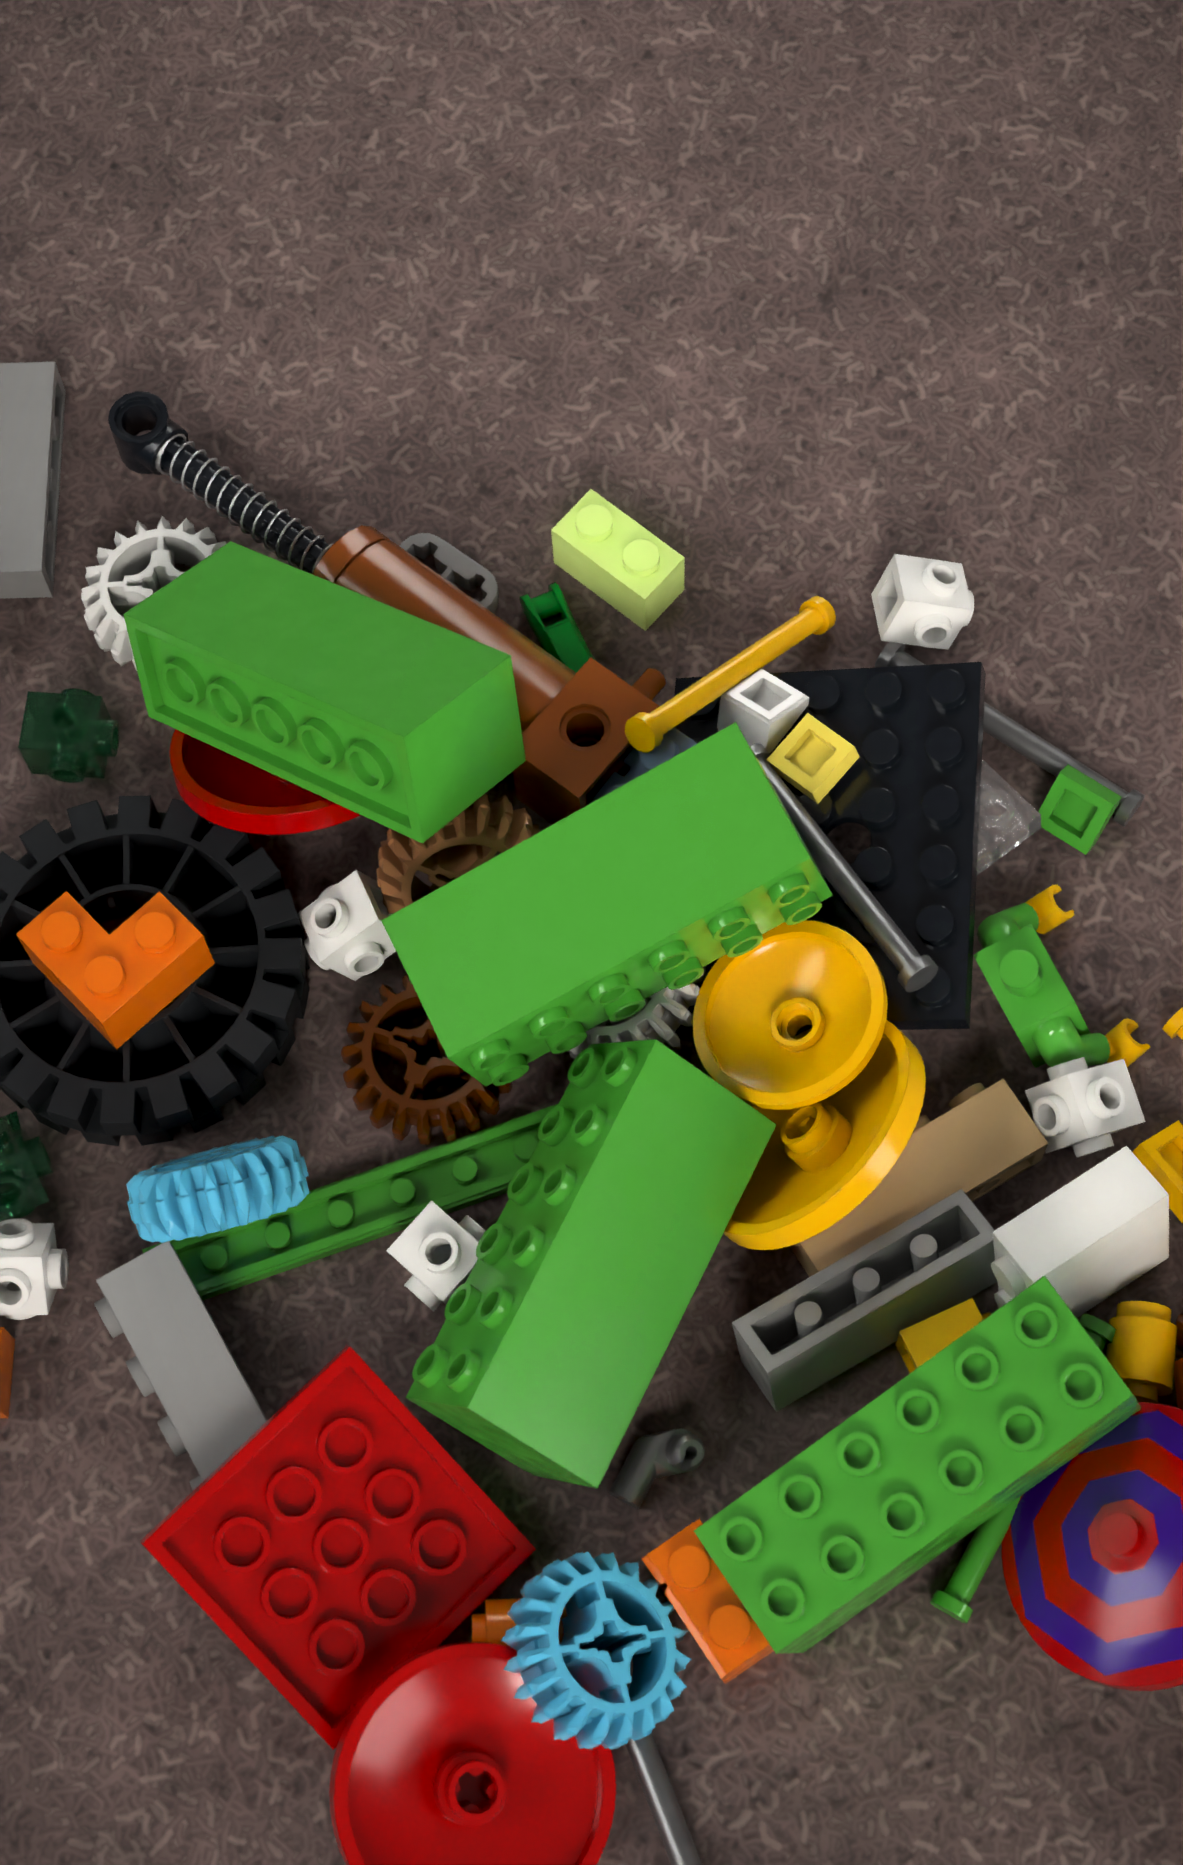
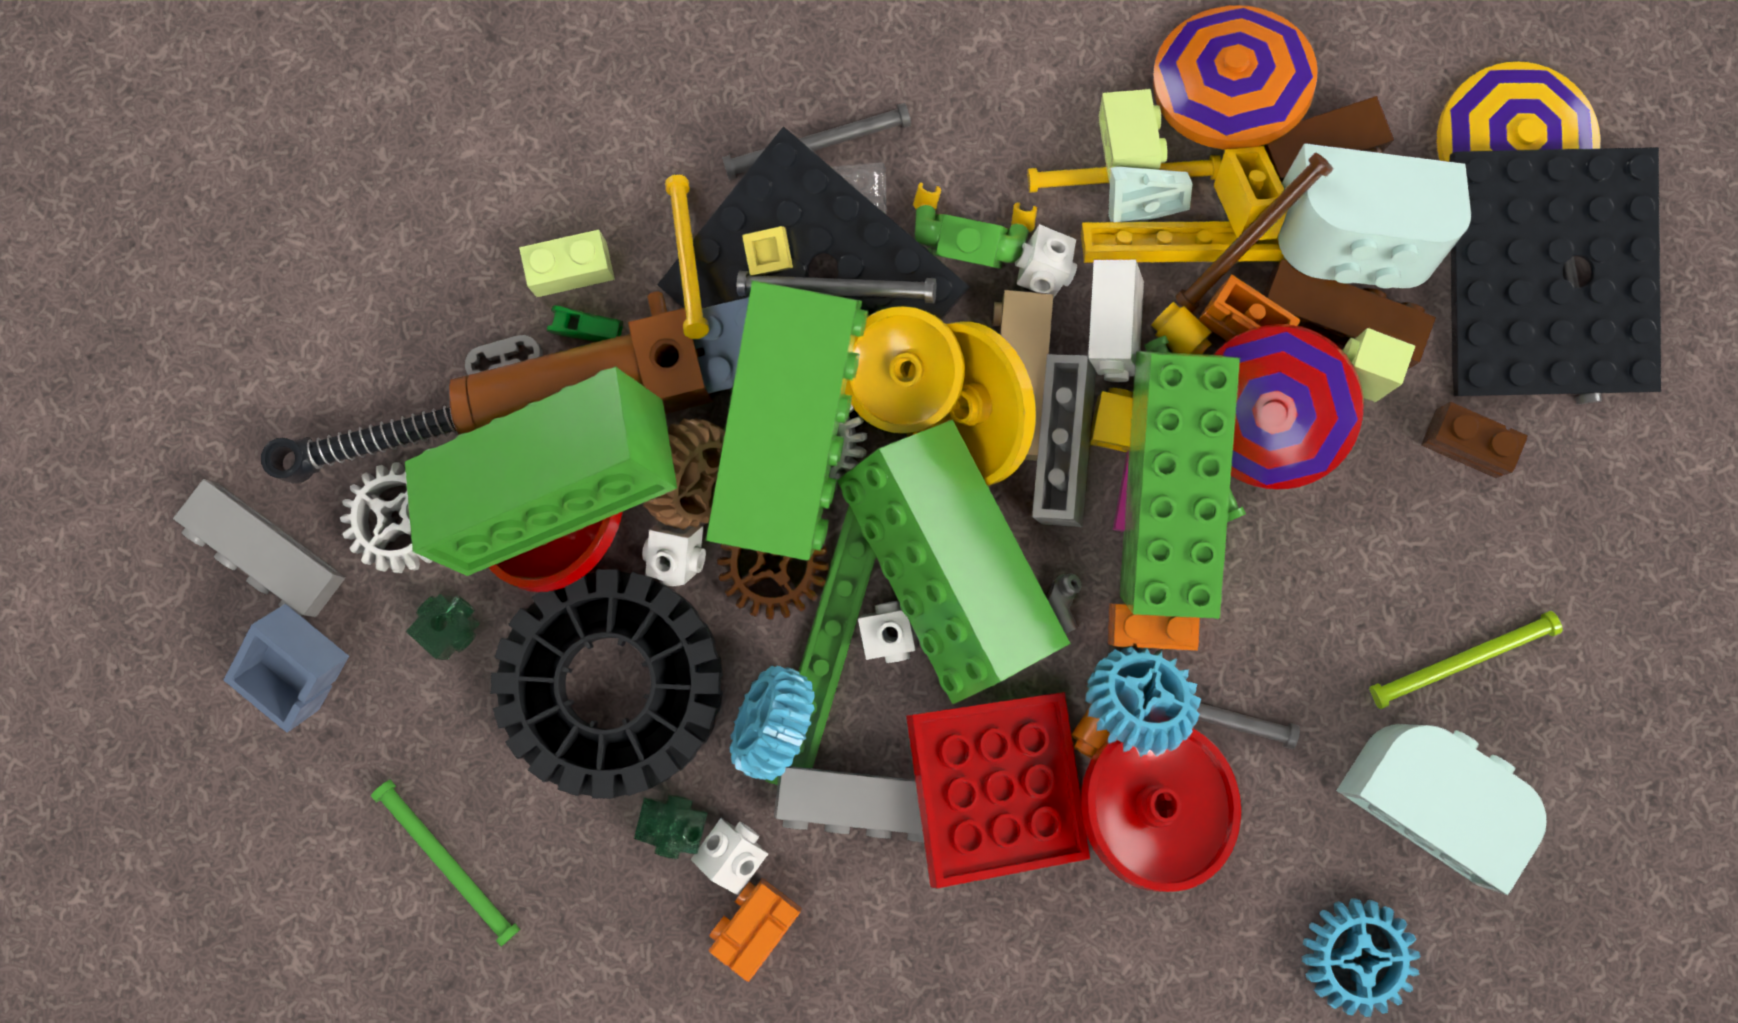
camera: 55 degrees left, 15 degrees up
(121, 975) = (622, 692): orange brick -> none
(762, 708) = (717, 257): white slope -> none
(922, 602) = (716, 128): white brick -> none
(1077, 809) = (887, 141): bright green plate -> none

